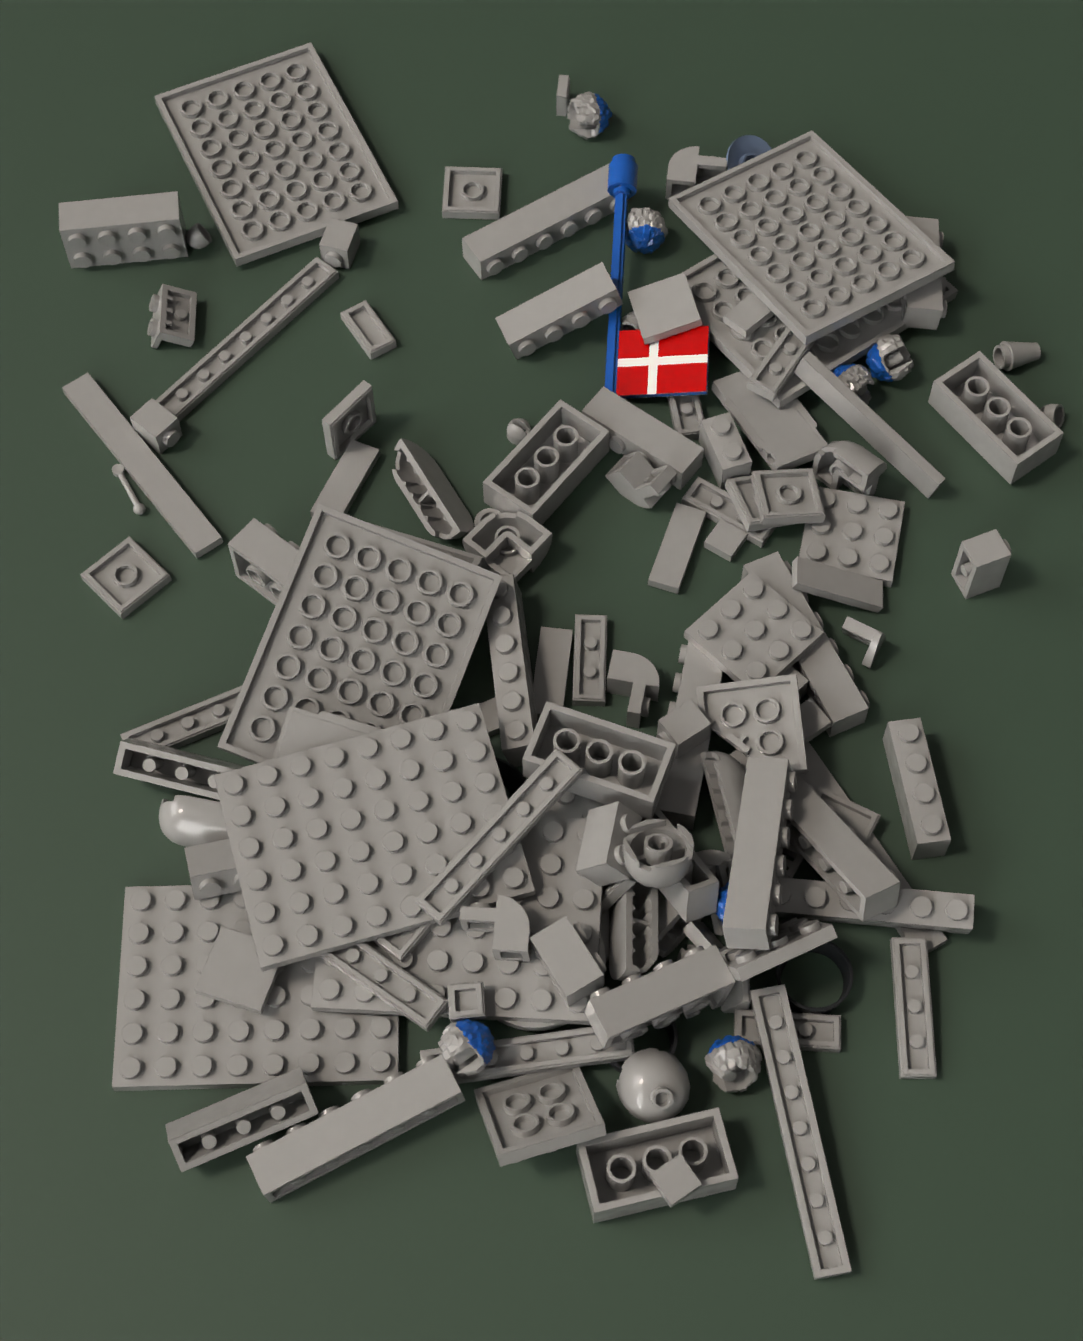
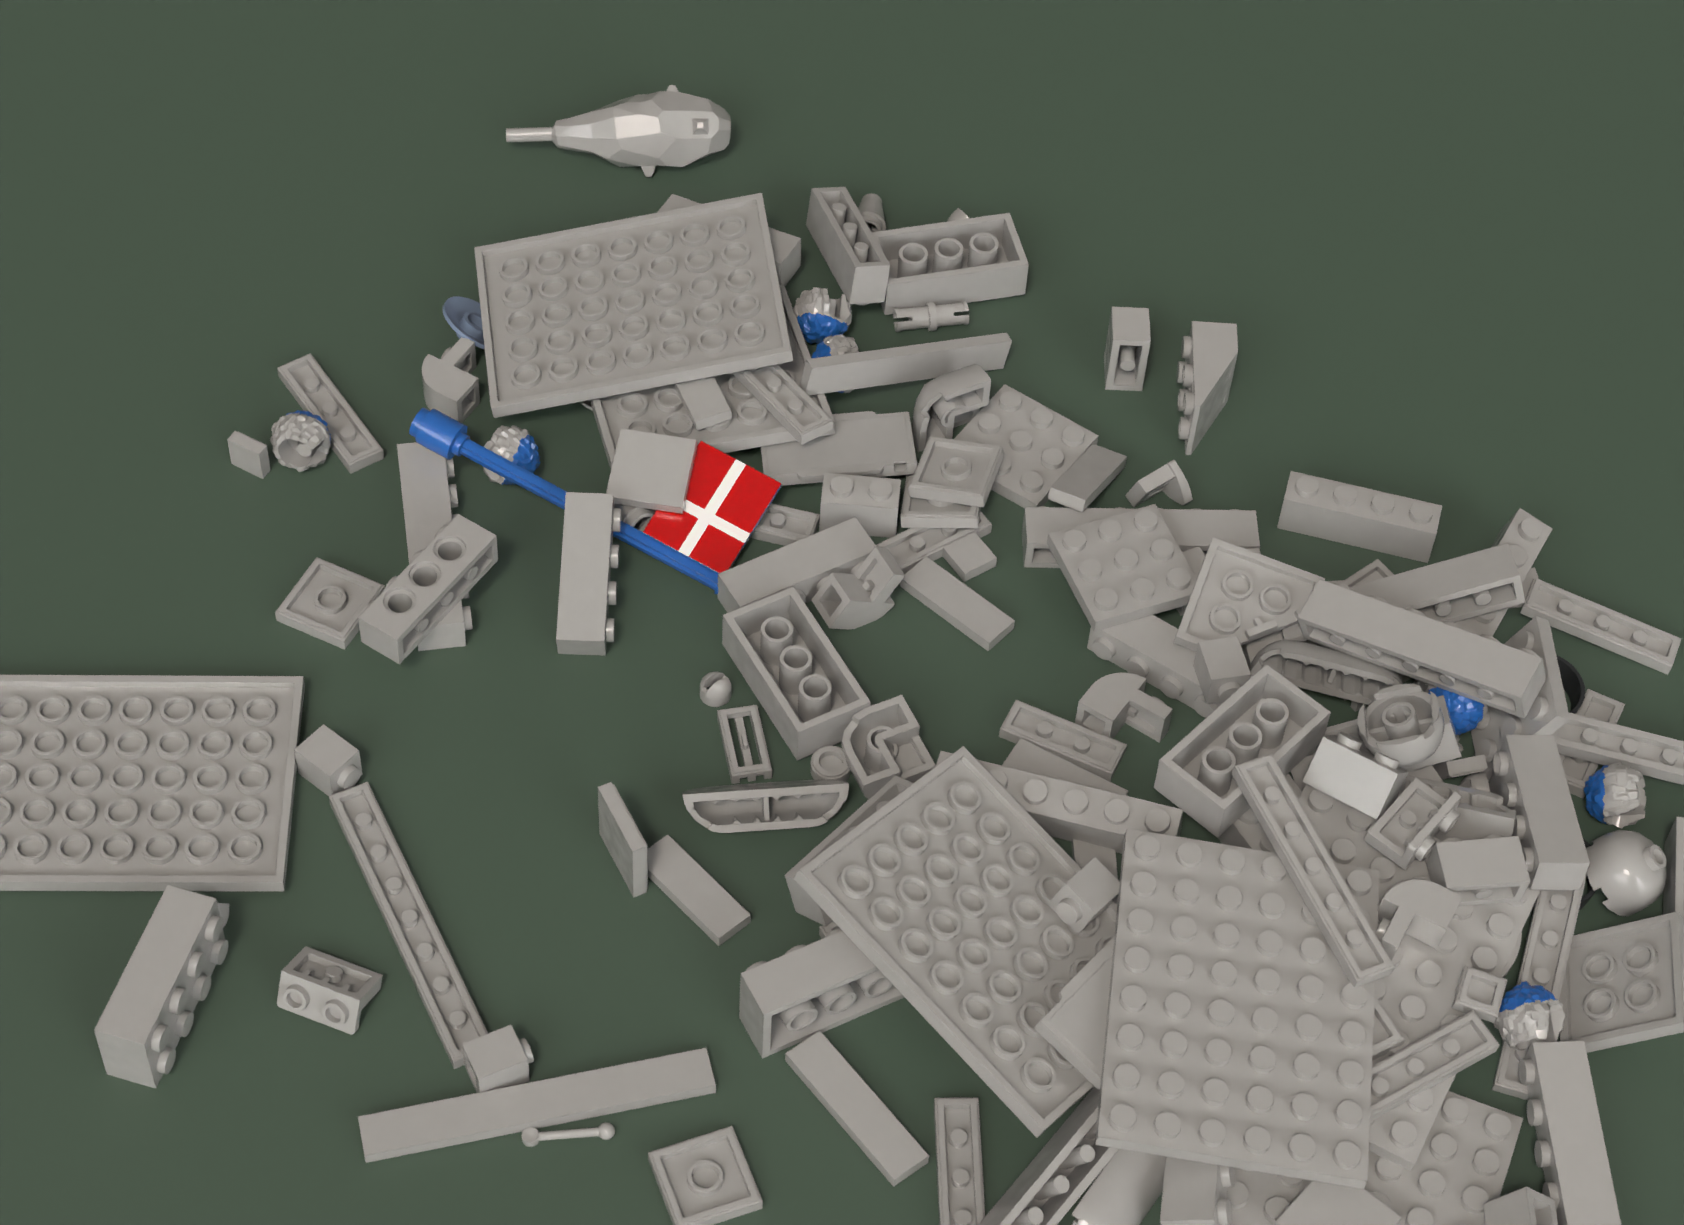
camera: 70 degrees left, 10 degrees down
(217, 643) = (857, 1108): none -> light grey tile
(368, 330) = (474, 785): light grey tile -> none
(419, 701) = (1085, 895): none -> light grey brick
(474, 477) = (748, 770): none -> light grey tile
(487, 227) = (427, 588): none -> light grey brick
(587, 899) = (1412, 823): none -> light grey bracket
(631, 122) = (320, 396): none -> light grey tile
(943, 430) = (931, 316): none -> light grey pin
(975, 334) = (848, 245): none -> light grey brick
(980, 630) = (1205, 377): none -> light grey slope
(995, 180) = (641, 131): none -> light grey piece

